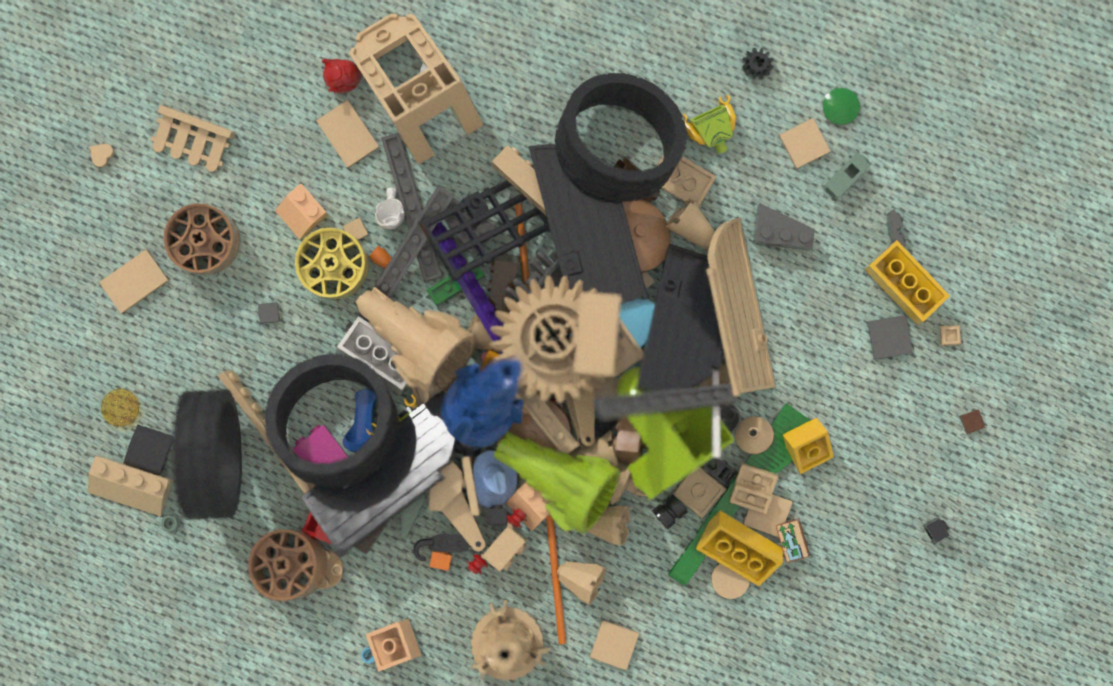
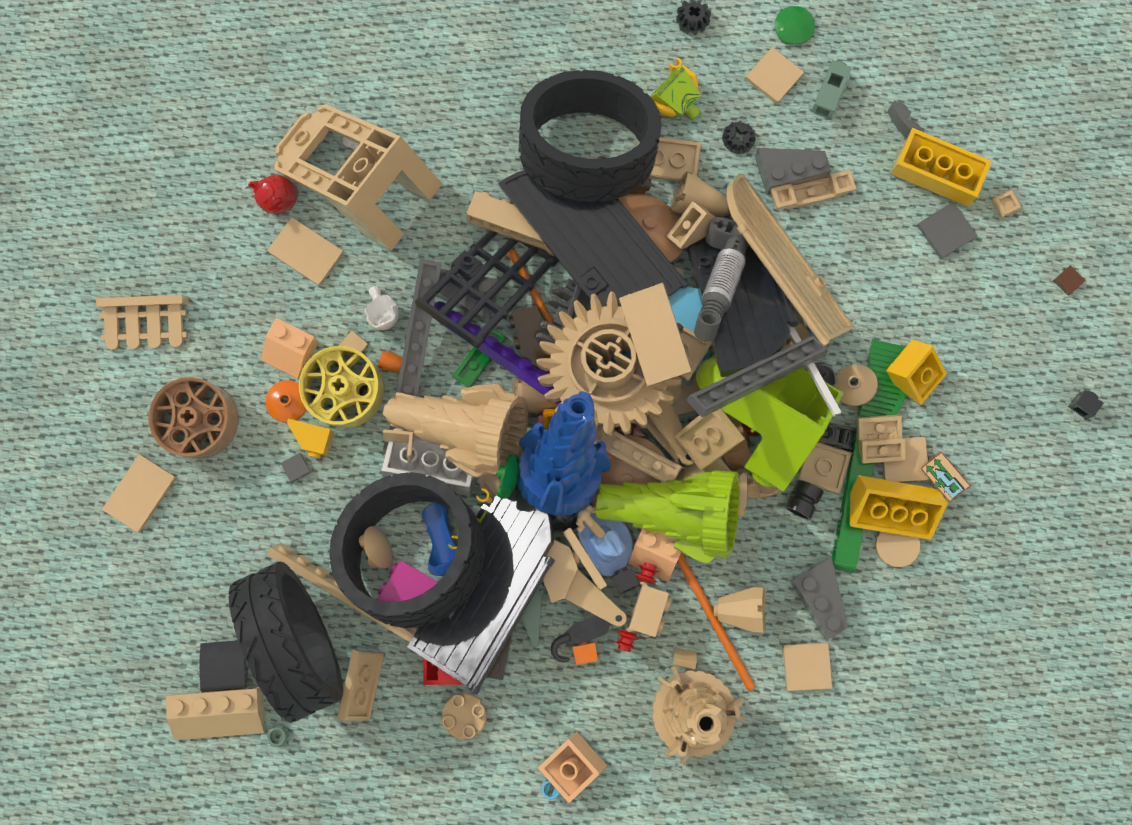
camera: 15 degrees left, 5 degrees down
(101, 154) = (54, 375): tan tile -> none
(120, 407) = (174, 633): clear yellow dish -> none
(251, 511) = (360, 686): none -> tan tile
(271, 254) = (292, 409): none -> orange dish
(287, 565) = (421, 728): medium nougat wheel -> none
(291, 294) = (312, 438): none -> yellow slope
(308, 406) = (376, 547): none -> tan dish
(364, 325) = (402, 436): none -> tan bracket
(409, 198) = (392, 285): dark grey tile -> none
(435, 395) = (509, 476): none -> green dish
(484, 453) = (584, 516): none -> tan piece
(518, 597) = (684, 658): none -> tan tile
(608, 434) = (709, 438): none -> tan tile
(613, 525) = (751, 538): tan cone -> none
(649, 594) = (821, 597): none -> dark grey wedge
(674, 248) = (691, 226): none -> tan slope
(677, 306) = (723, 278): none -> dark grey piece
(745, 191) = (735, 145): none -> black gear
(791, 257) = (813, 191): none -> tan slope

